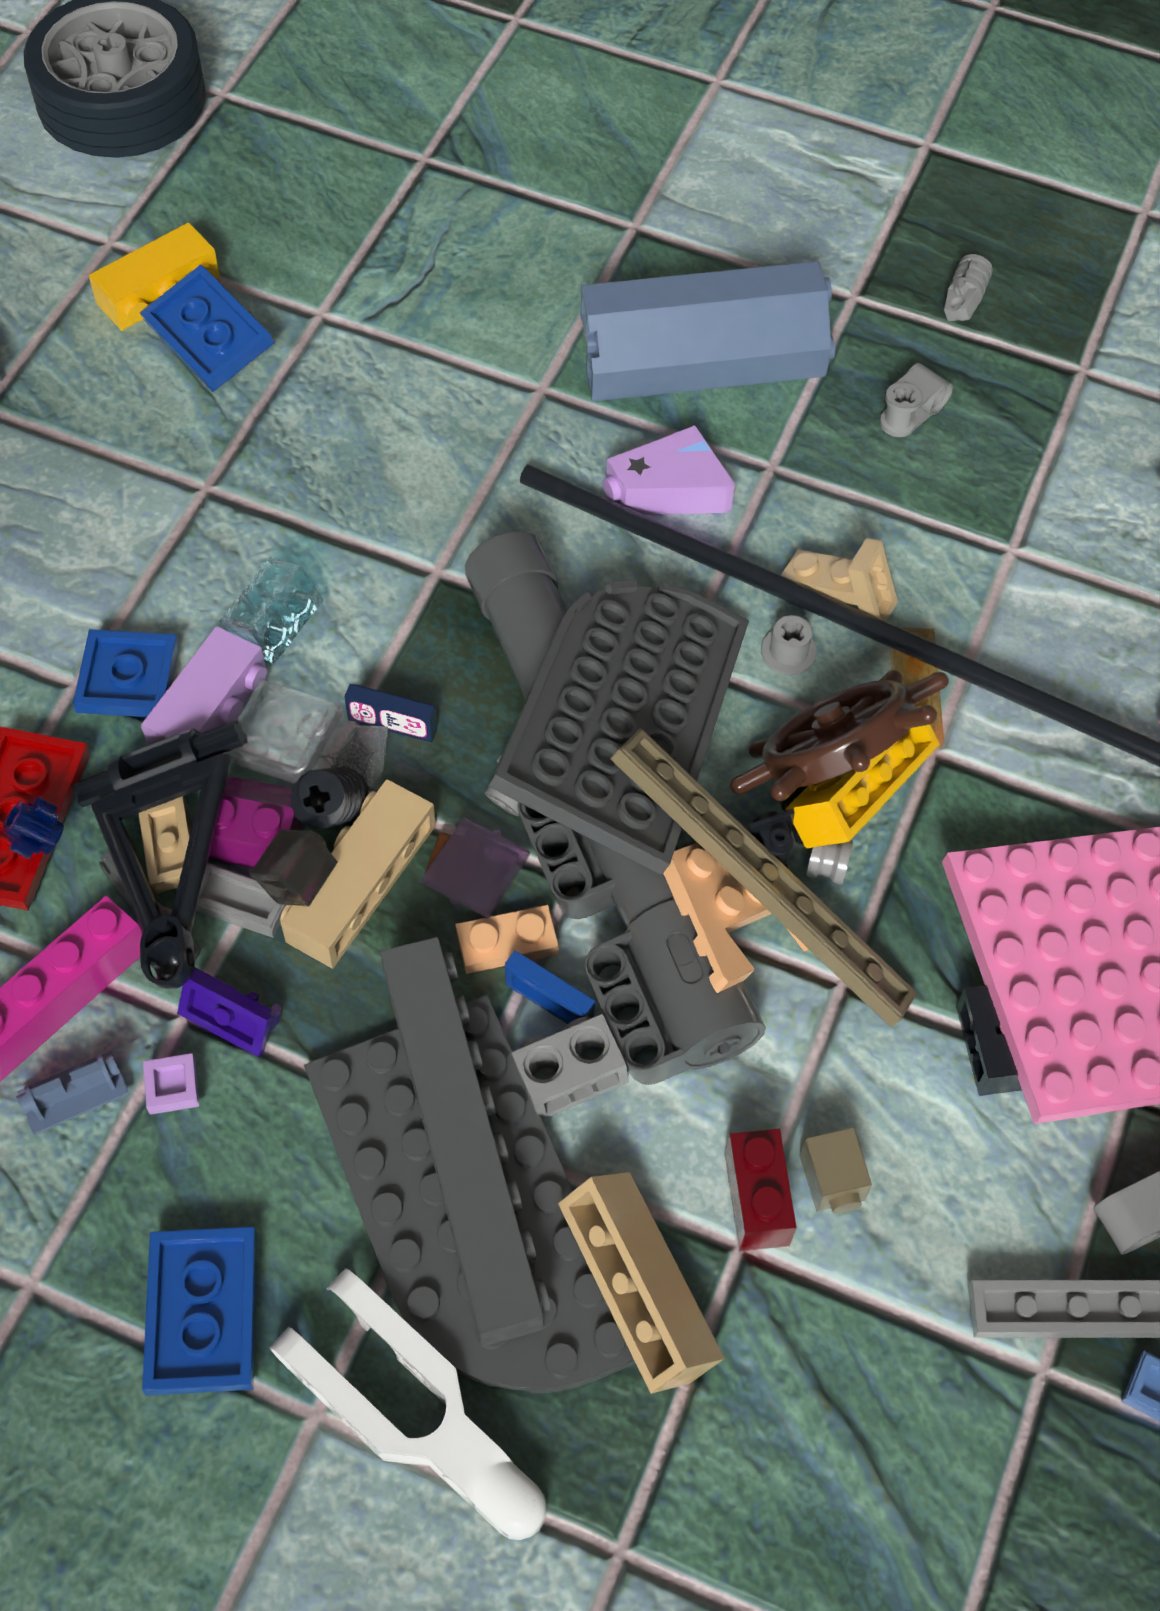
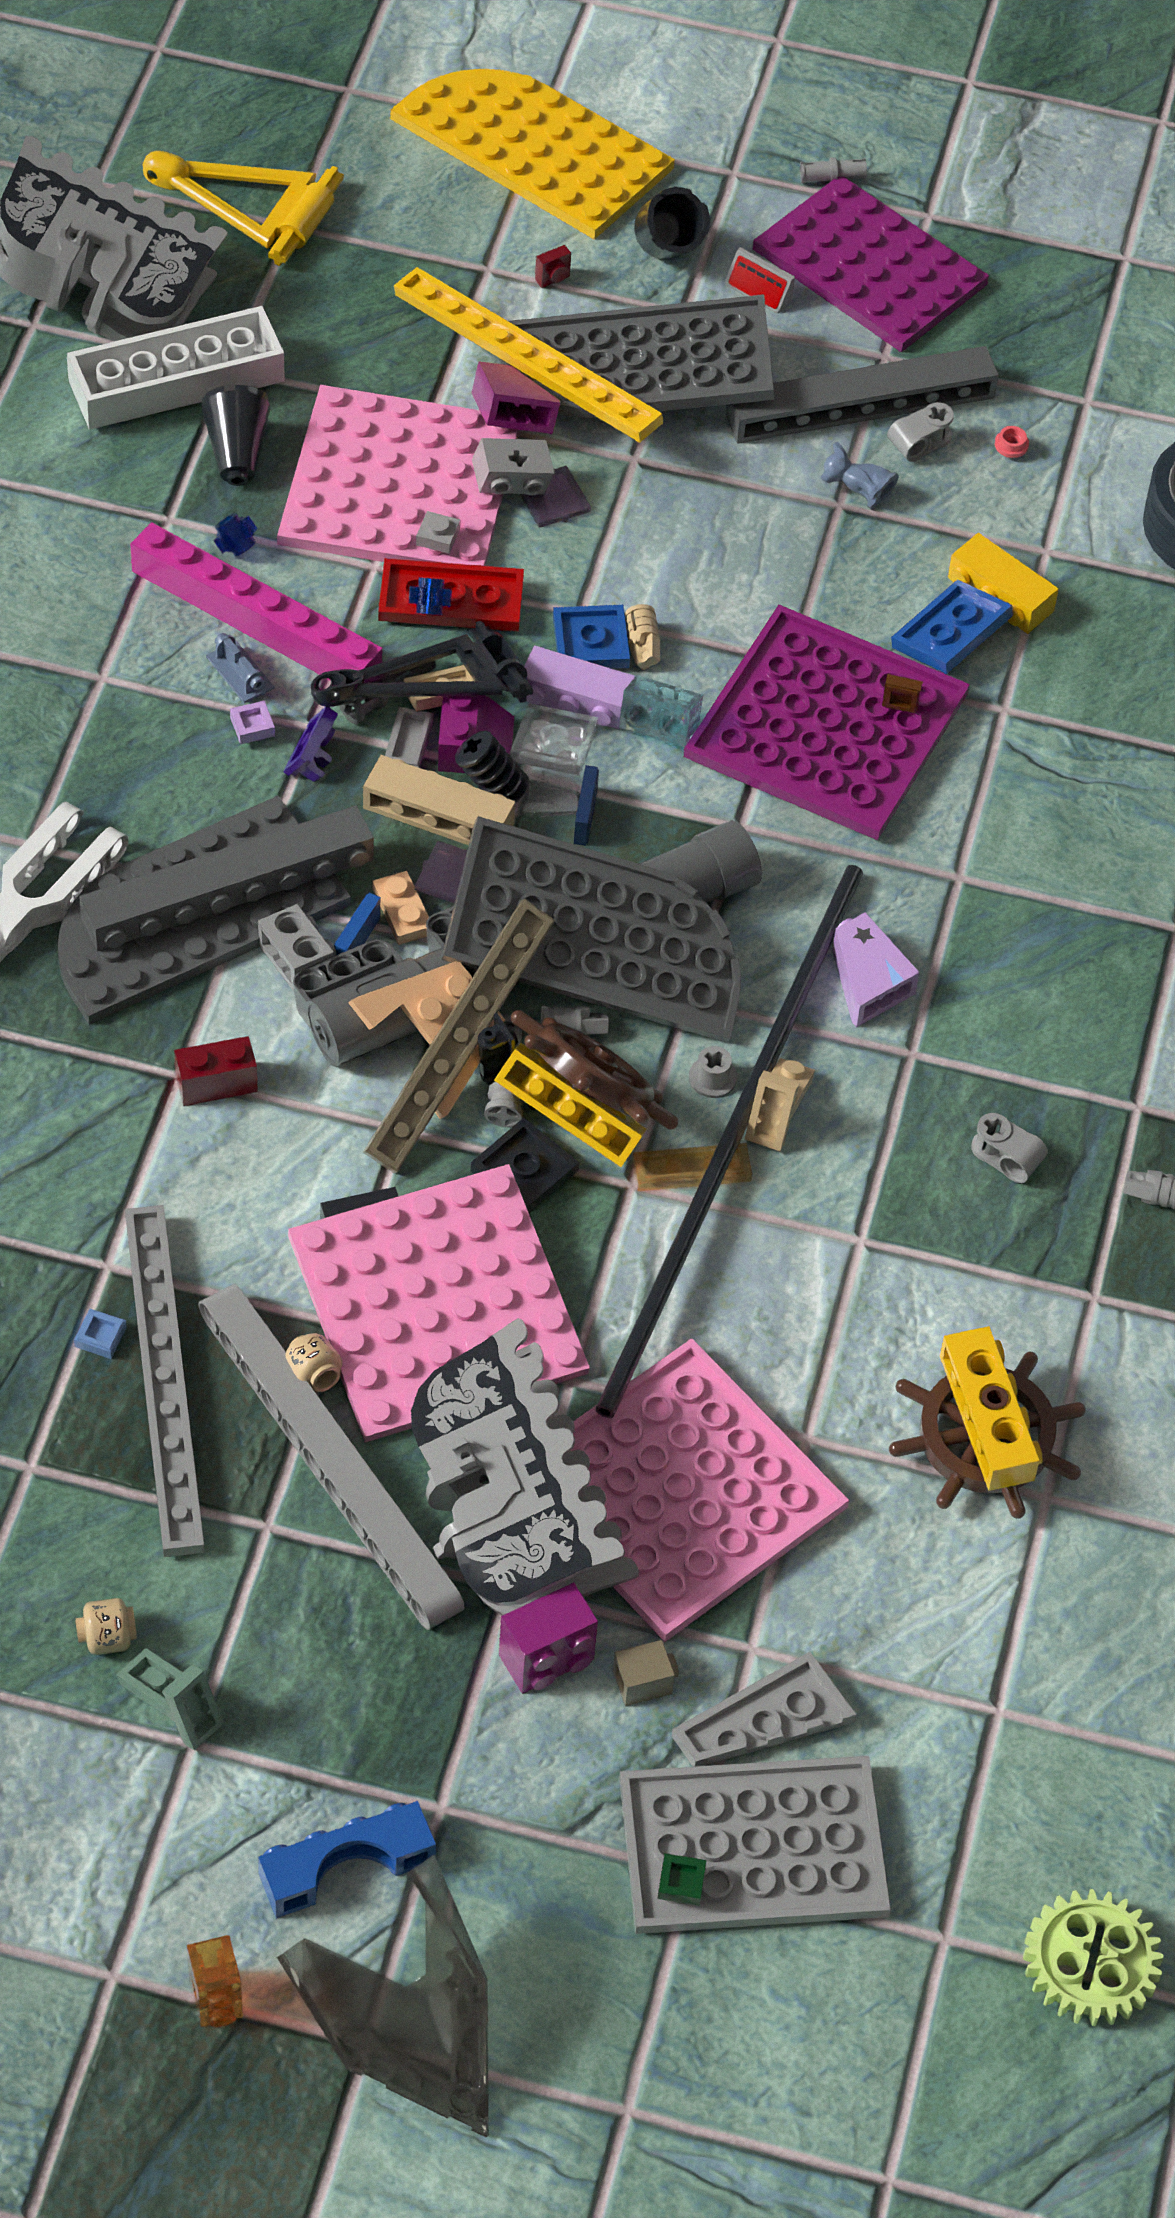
camera: 80 degrees right, 5 degrees down
(152, 616) = (643, 635): none -> tan hinge
(200, 1311) = (91, 765): blue plate -> none
(294, 867) = (421, 749): clear smoke brick -> none
(307, 375) = (902, 693): none -> reddish brown tile
(309, 463) = (812, 723): none -> magenta plate
(640, 1281) = (138, 1001): tan brick -> none
(706, 330) = (1032, 972): sand blue panel -> none
(718, 769) = (578, 1018): none -> light grey hinge
(835, 1171) = (238, 1119): dark tan brick -> none
(910, 848) = (534, 1159): none -> black plate

